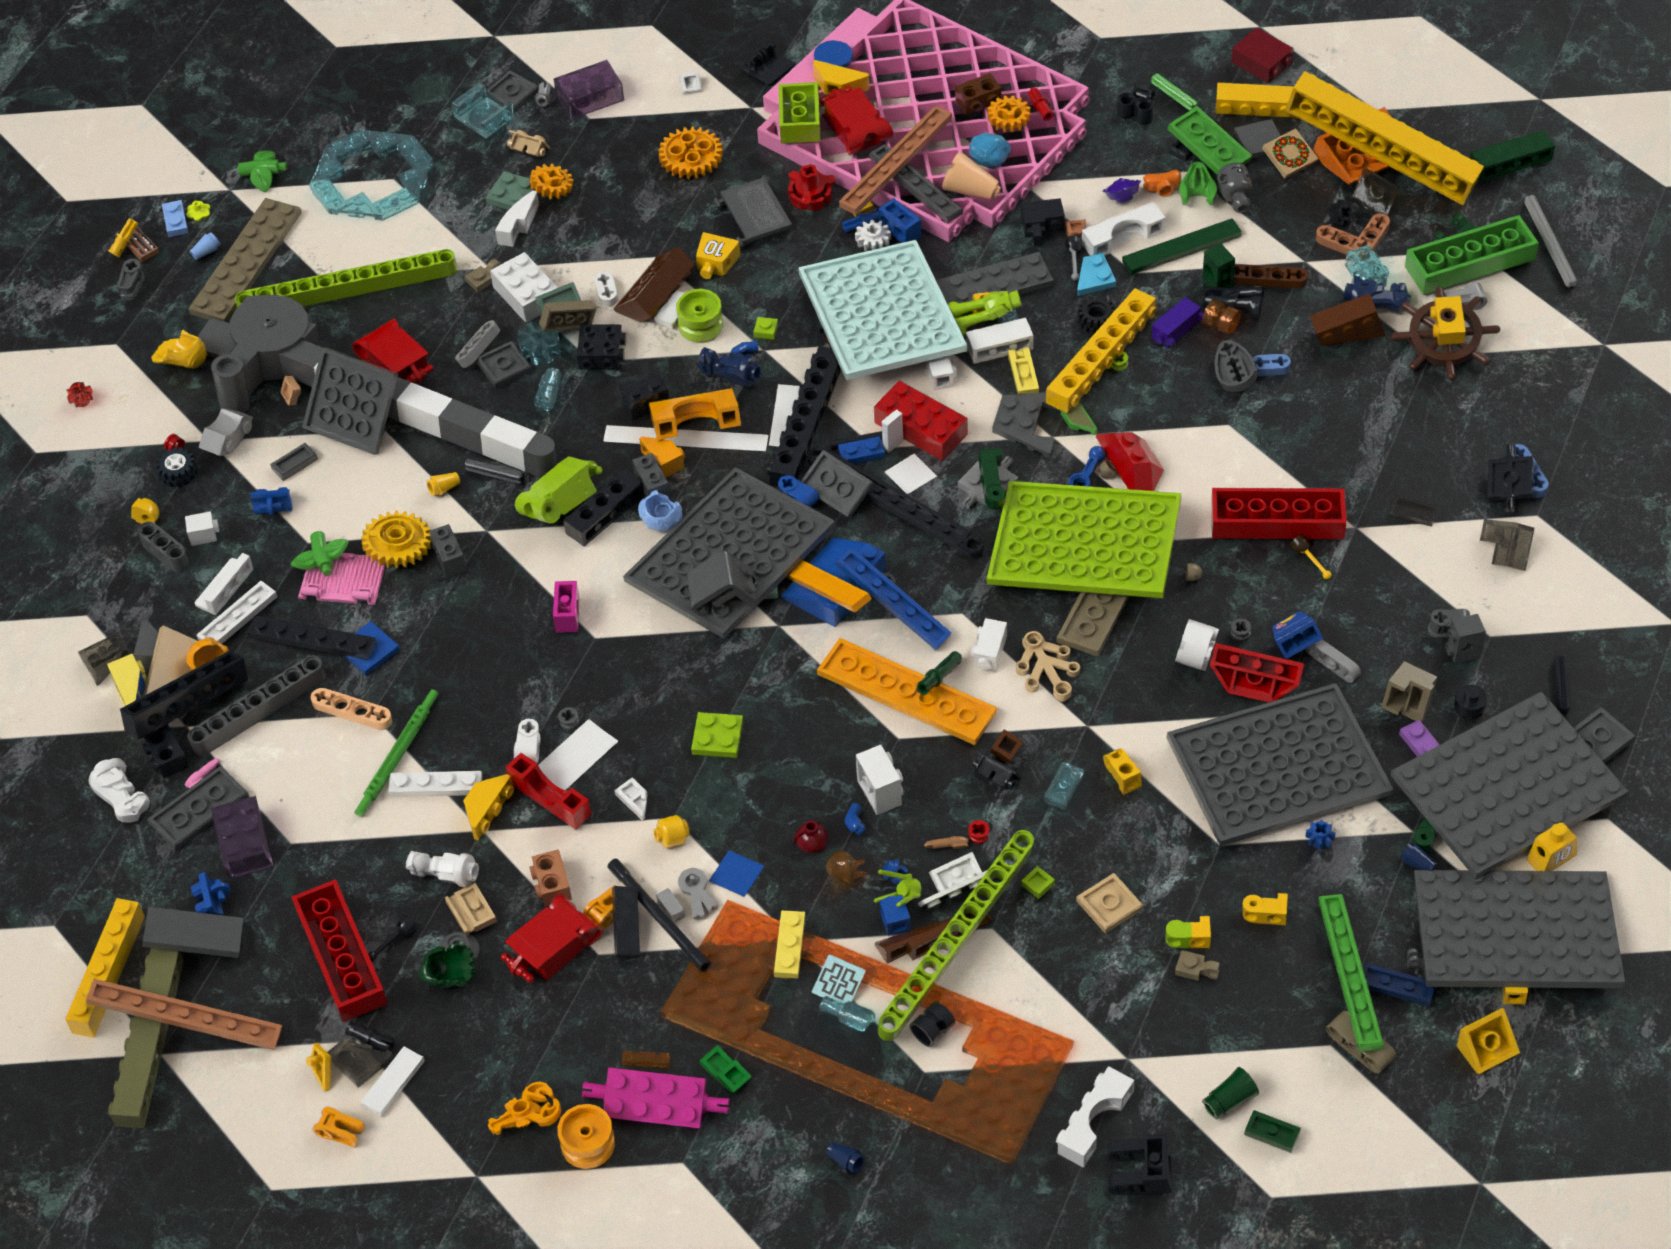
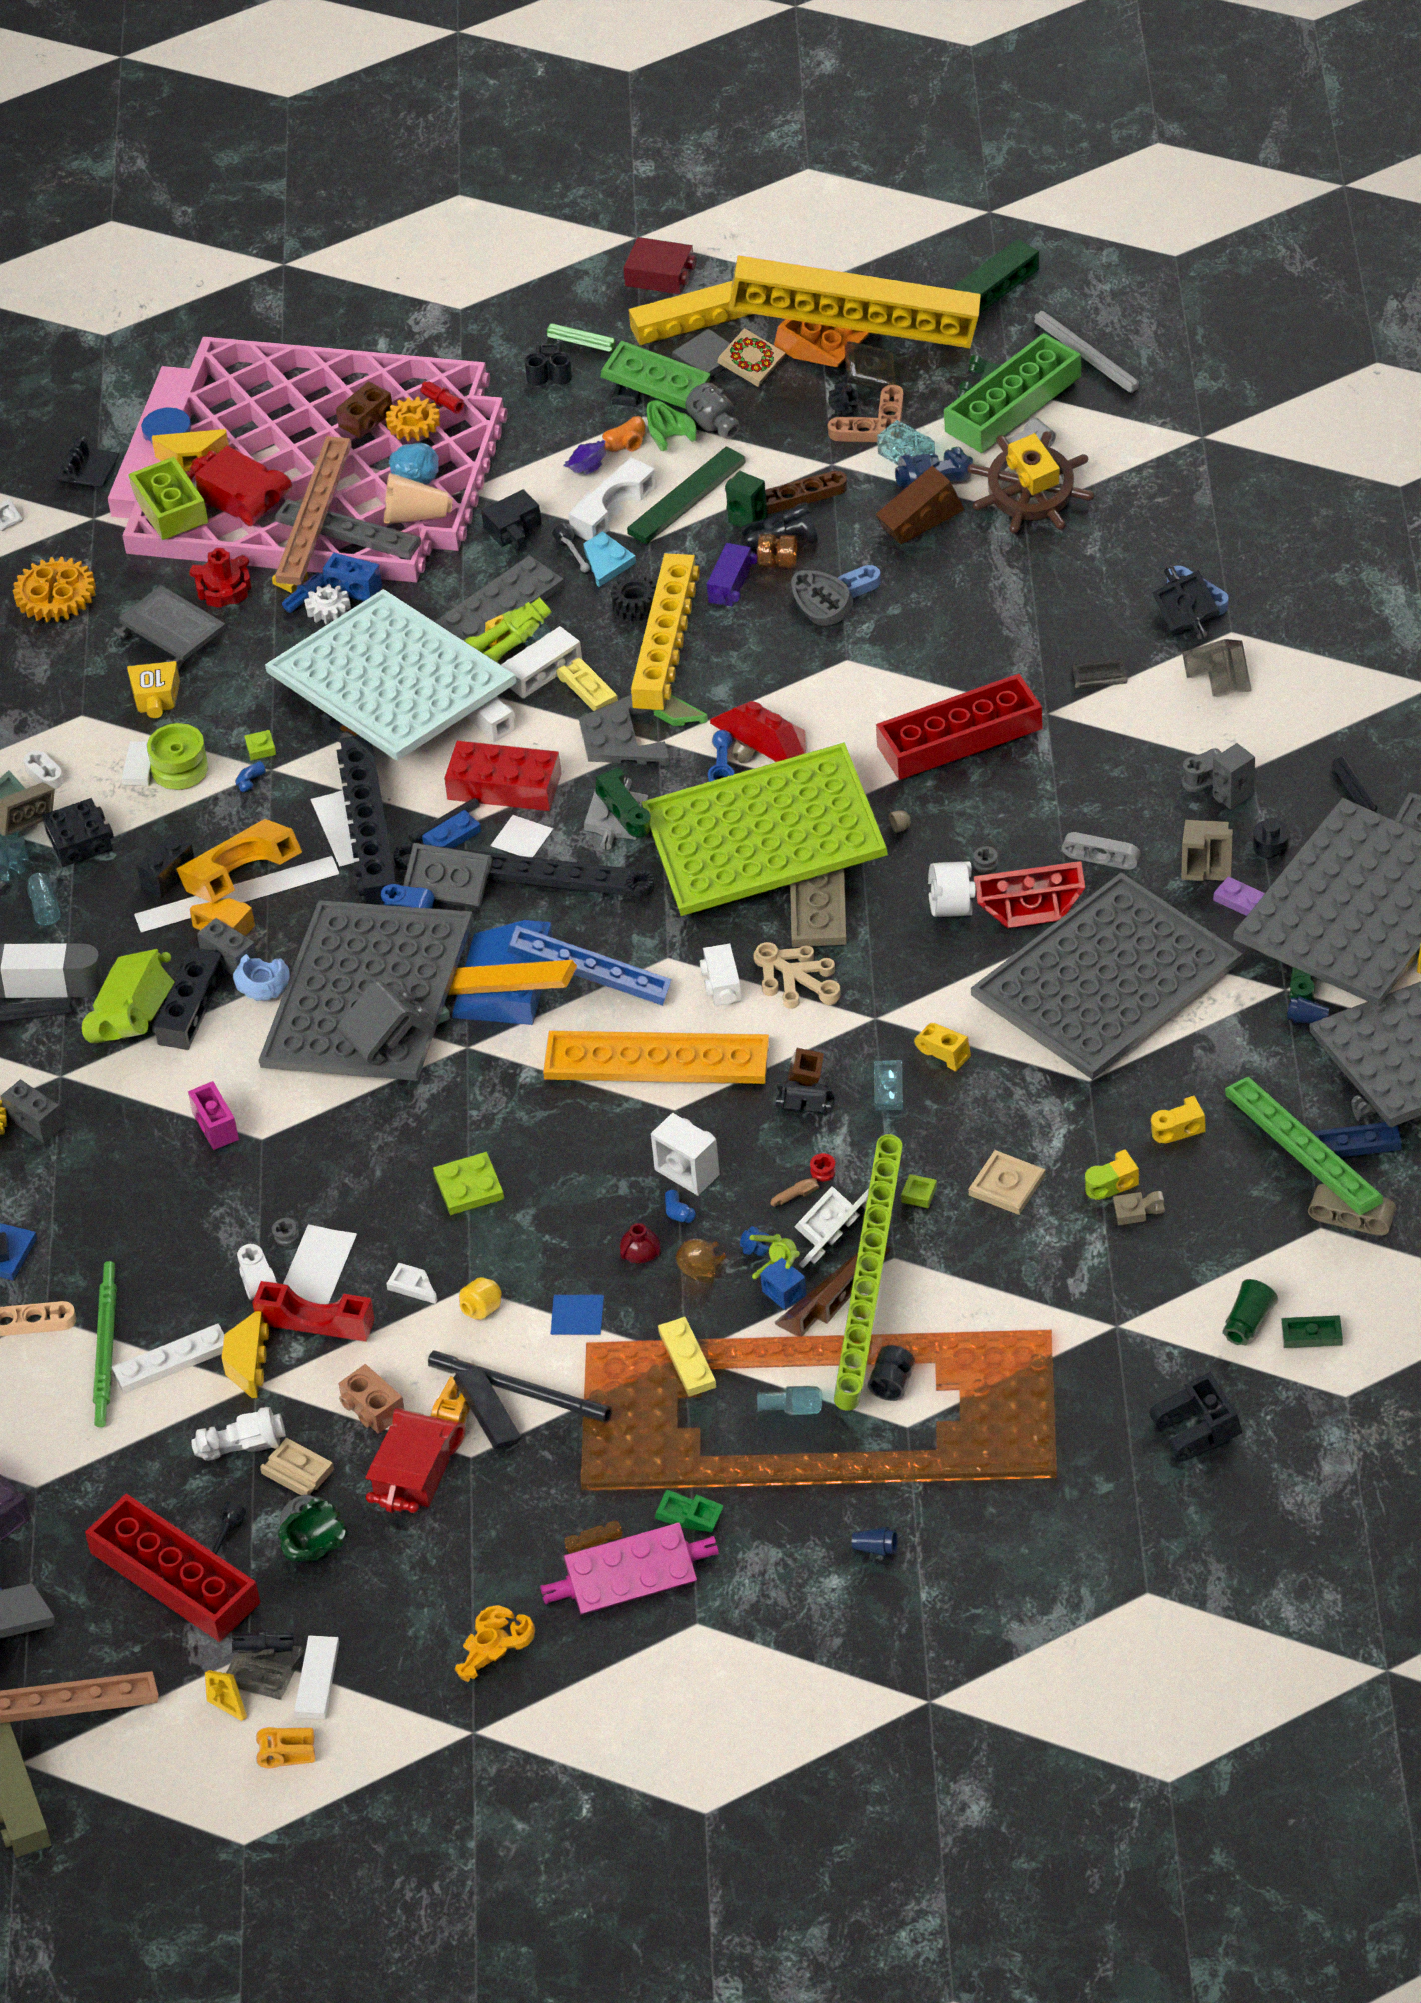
camera: 25 degrees left, 5 degrees down
(586, 1136) = (578, 1636): light orange wheel -> none
(655, 285) = (101, 744): reddish brown slope -> none
(671, 904) = (525, 1370): light grey piece -> none
(693, 883) = (537, 1341): light grey piece -> none
(736, 368) = (256, 797): dark blue animal -> none
(838, 980) = (759, 1372): clear light blue sticker -> none
(892, 431) = (480, 795): white tile -> none
(935, 676) = (683, 1026): dark green pin -> none
(1075, 227) = (553, 517): nougat tile -> none
(1110, 1093) = (1117, 1419): white arch -> none
(1120, 365) = (692, 641): lime bush -> none
(1296, 633) = (1052, 836): blue torso -> none
(1301, 545) = (1001, 752): hinge -> none
(1320, 834) = (1192, 1027): blue gear -> none

